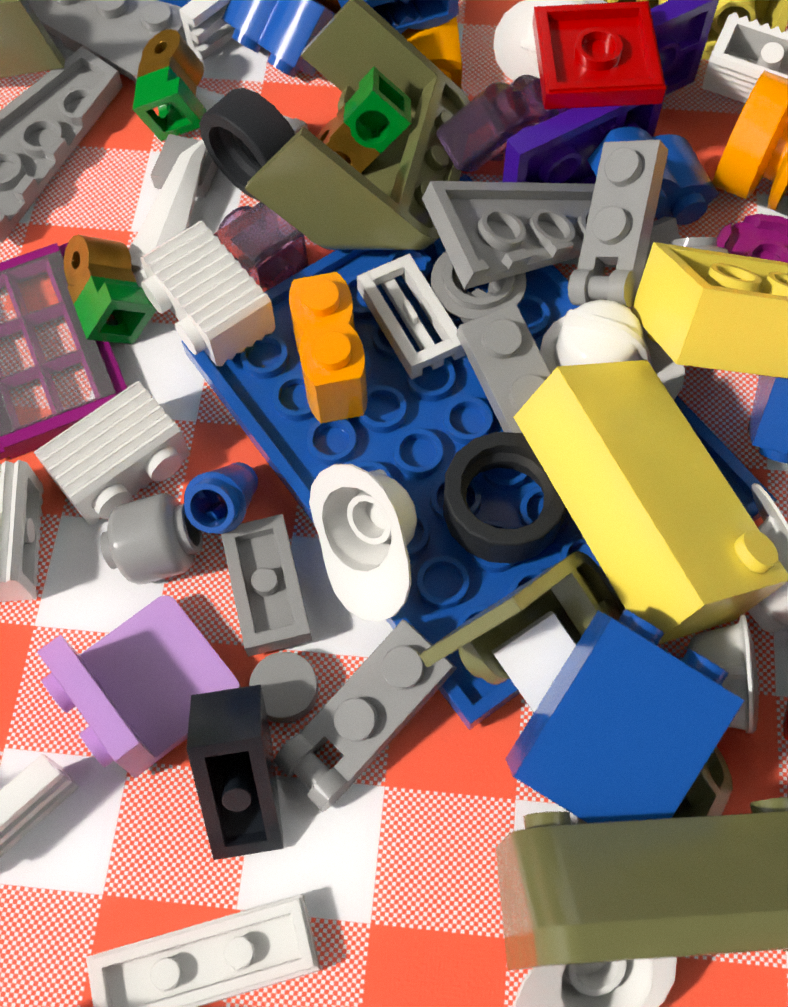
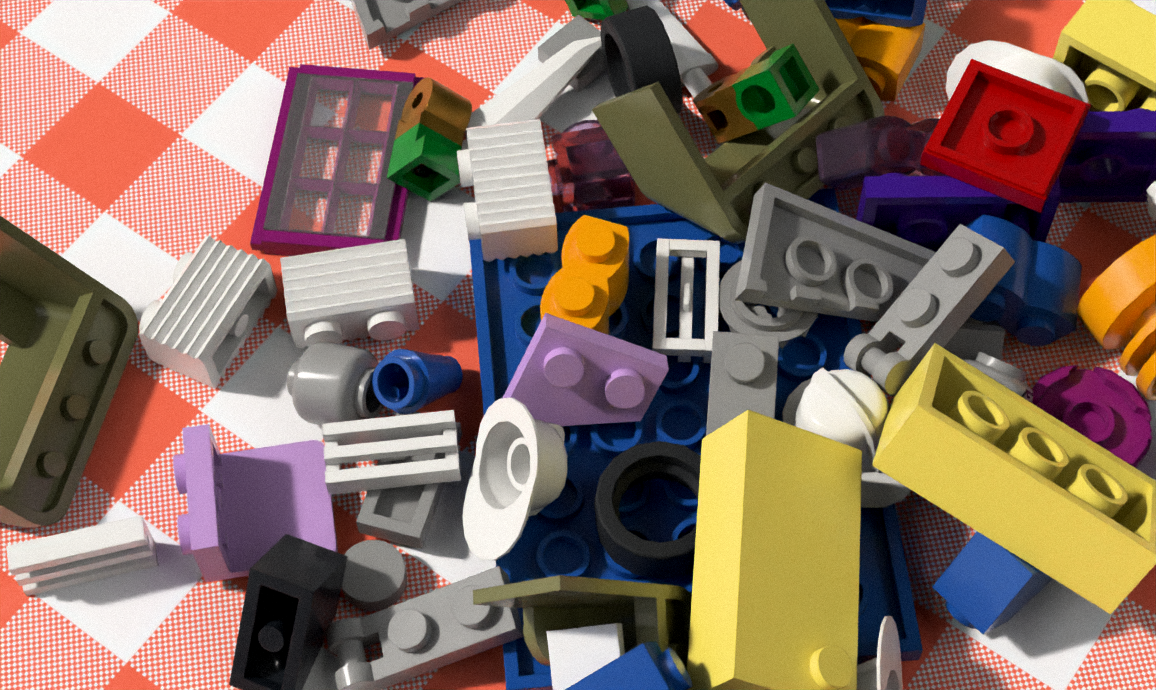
camera: 30 degrees right, 5 degrees down
(227, 550) = (391, 440): none -> white tile
(374, 415) = (585, 376): none -> lavender wing

